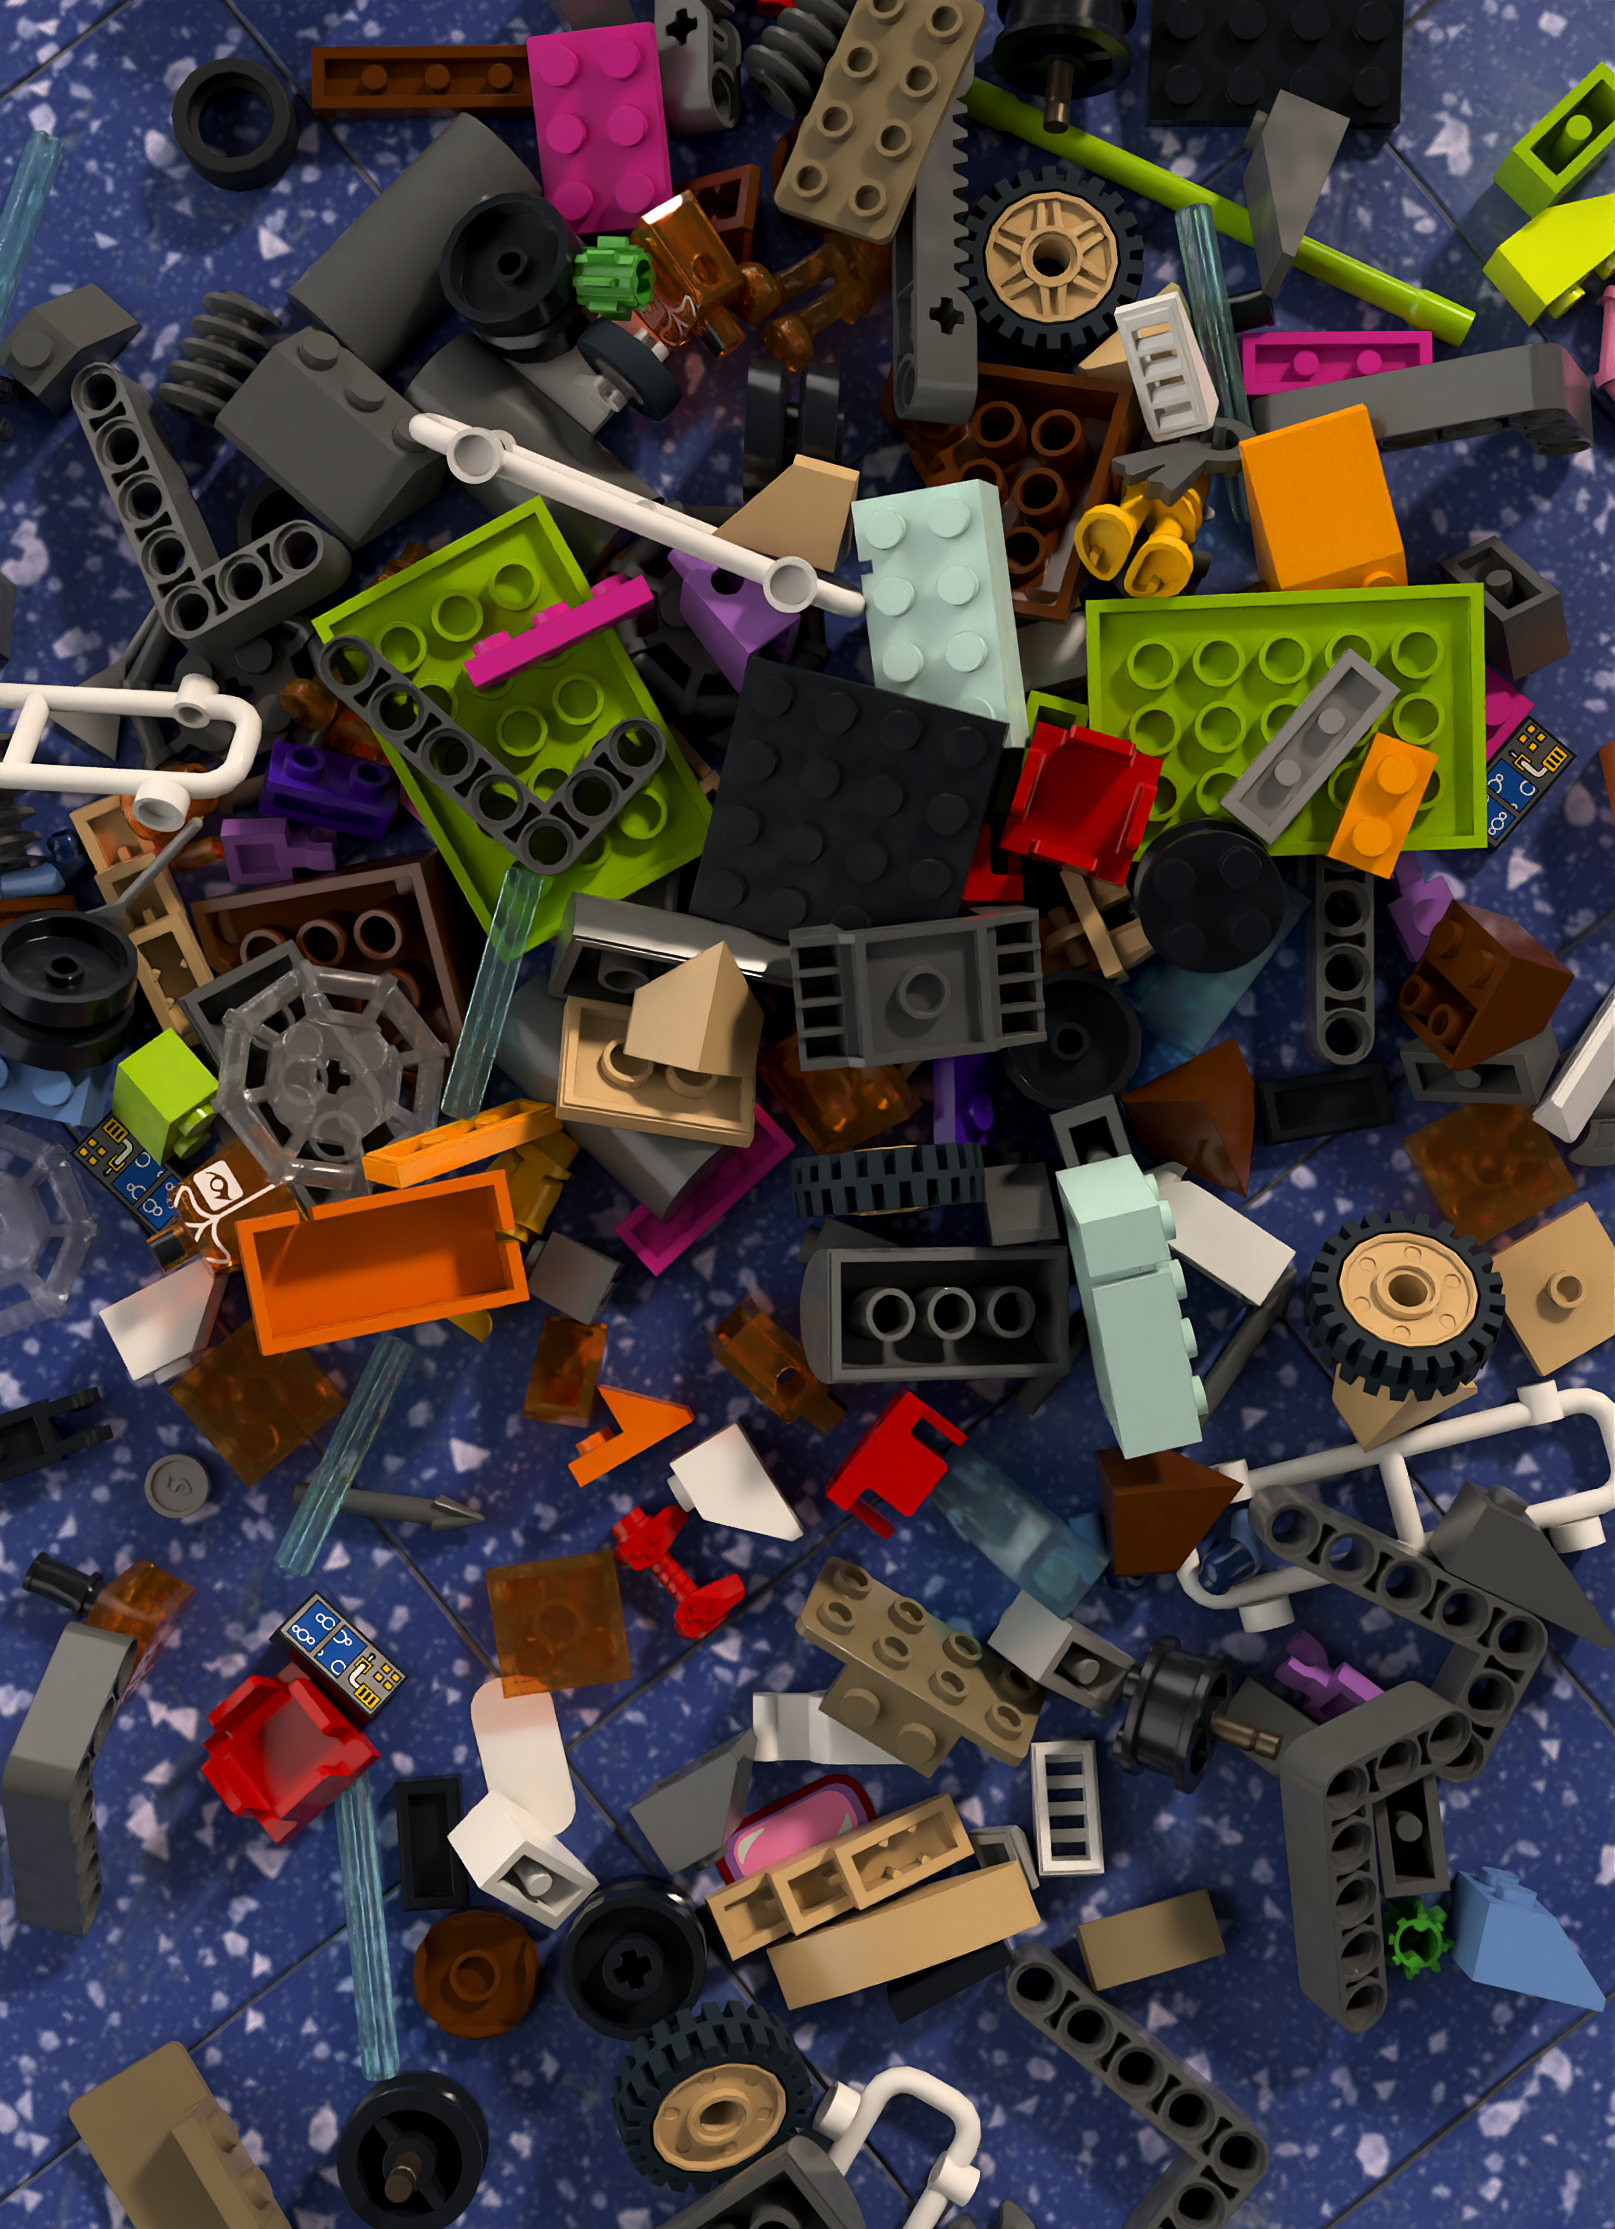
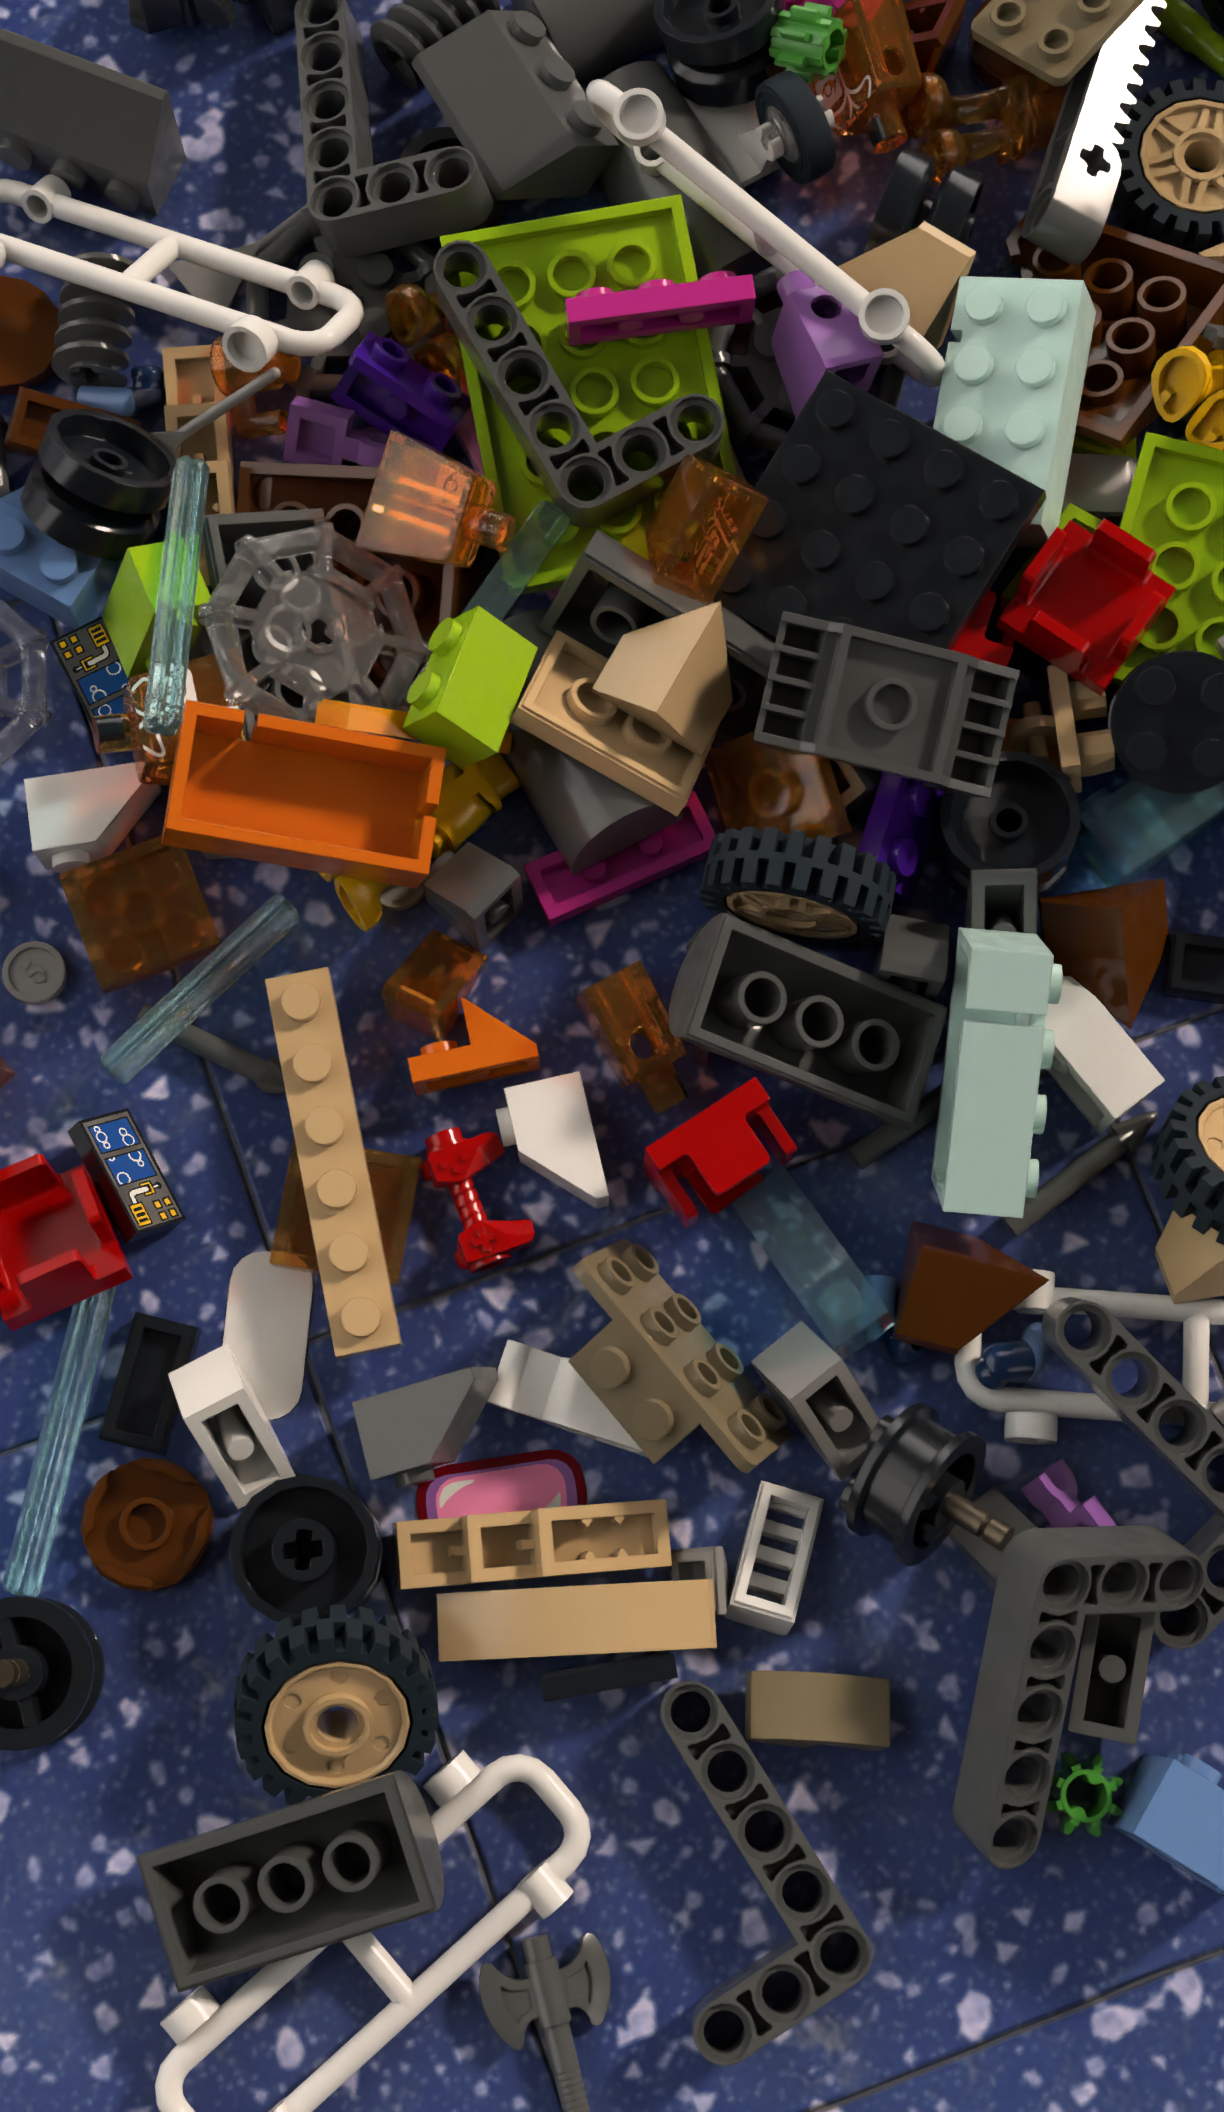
camera: 15 degrees right, 10 degrees down
(185, 1100) = (176, 597): none -> clear light blue axle
(402, 914) = (431, 508): none -> clear orange torso
(504, 1095) = (469, 686): none -> lime brick
(531, 1586) = (333, 1164): none -> tan plate
(678, 859) = (705, 519): none -> clear orange torso

